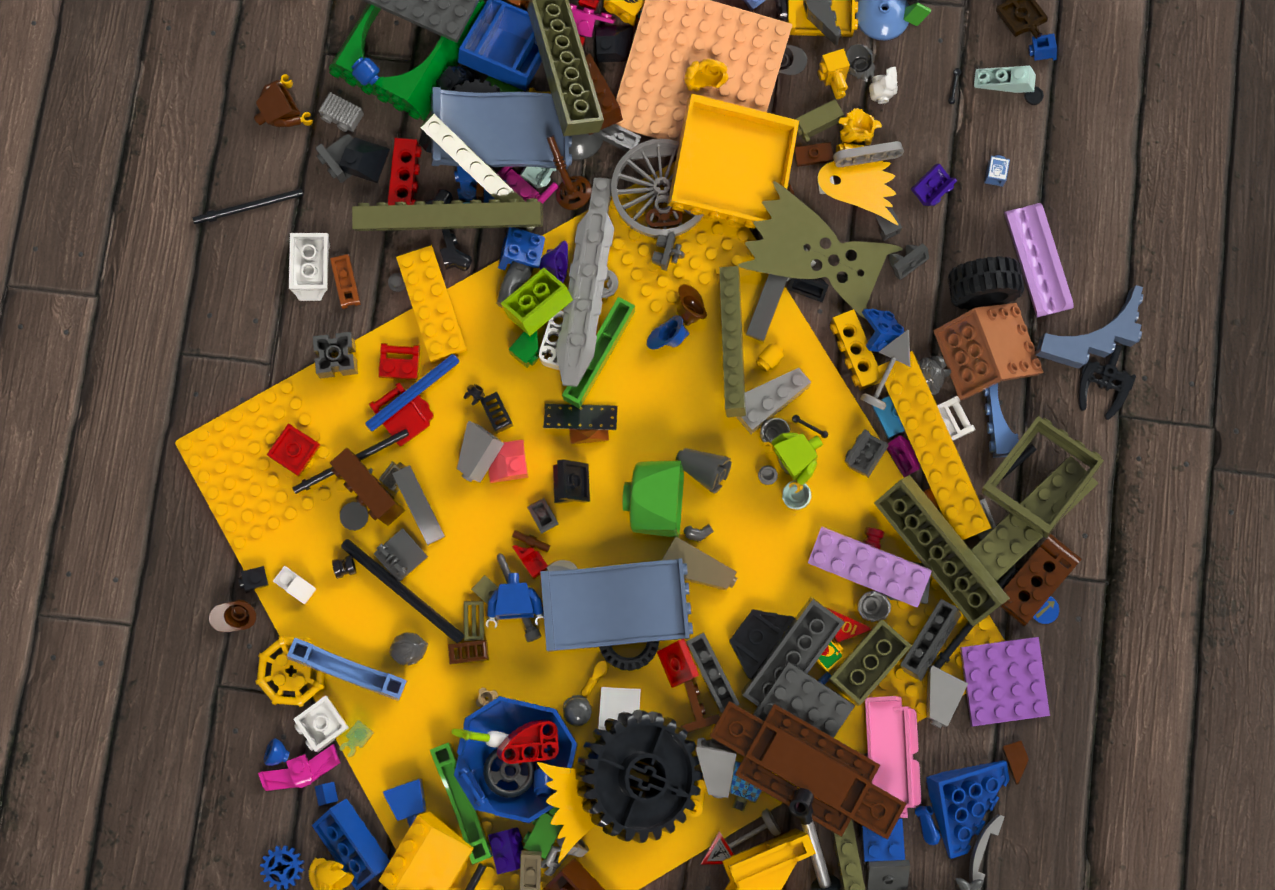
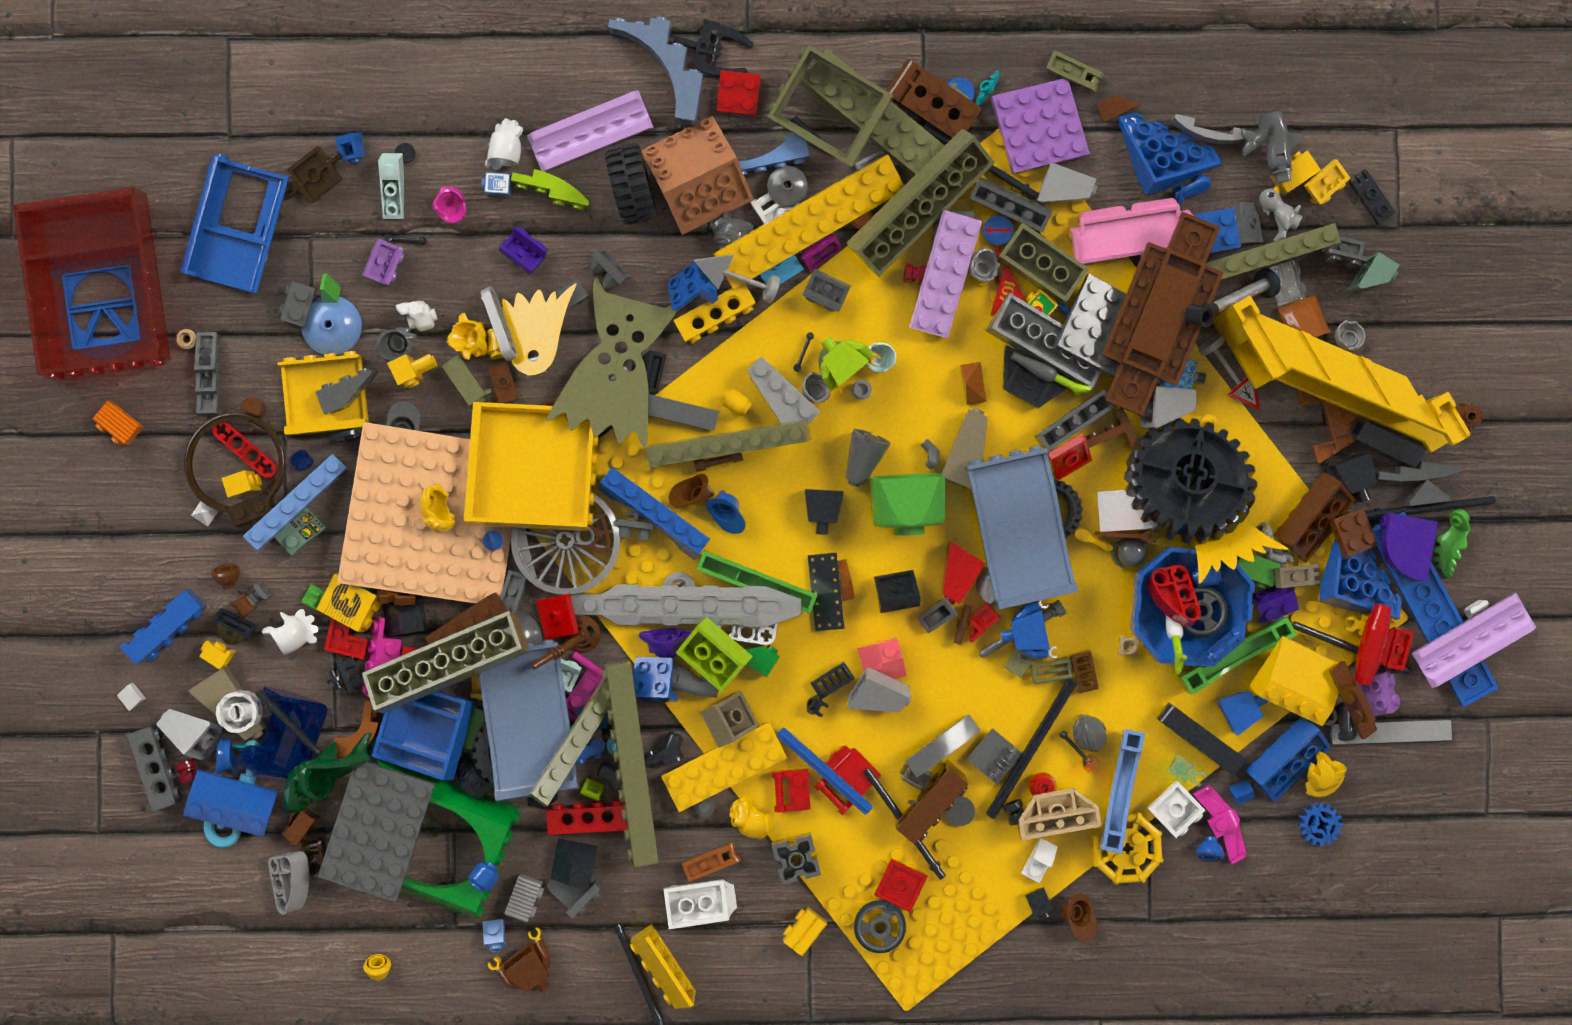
camera: 105 degrees left, 10 degrees up
(256, 226) = (664, 968): none -> yellow slope
(260, 408) = (862, 927): none -> dark grey wheel
(266, 357) = (804, 930): none -> yellow brick
(311, 83) = (494, 935): none -> medium blue bracket
(334, 604) = (1058, 814): none -> tan wedge
(369, 600) = (1042, 779): none -> red cone
(377, 319) = (749, 820): none -> yellow hair
(380, 644) = (1089, 762): none -> hinge
(384, 758) = (1202, 739): none -> black beam
(429, 185) = (592, 789): none -> lime slope
(474, 313) = (729, 719): none -> dark tan slope
(580, 543) = (959, 573): none -> red slope
(591, 722) = (1142, 535): none -> reddish brown flag
(592, 172) = (557, 616): none -> red plate
(629, 34) = (397, 598): none -> reddish brown plate
(660, 423) = (823, 508): none -> black torso
(669, 123) = (493, 540): none -> blue tile
(691, 252) = (677, 529): none -> blue arch
(715, 319) = (702, 464): none -> reddish brown bar
(761, 582) = (973, 383): none -> dark orange slope
(761, 653) = (1049, 373): none -> dark grey piece
(904, 624) = (998, 231): none -> blue piece
(936, 62) = (383, 262): none -> medium lavender bracket
(967, 440) = (787, 196): none -> dark grey dish
(982, 125) = (450, 205): none -> dark pink hair
(987, 221) = (560, 190): none -> lime slope
(1032, 180) = (504, 145): none -> white piece
(1046, 635) = (987, 88): none -> teal piece
(1055, 722) = (1074, 71): none -> olive plate
(1062, 398) = (738, 93): none -> red plate

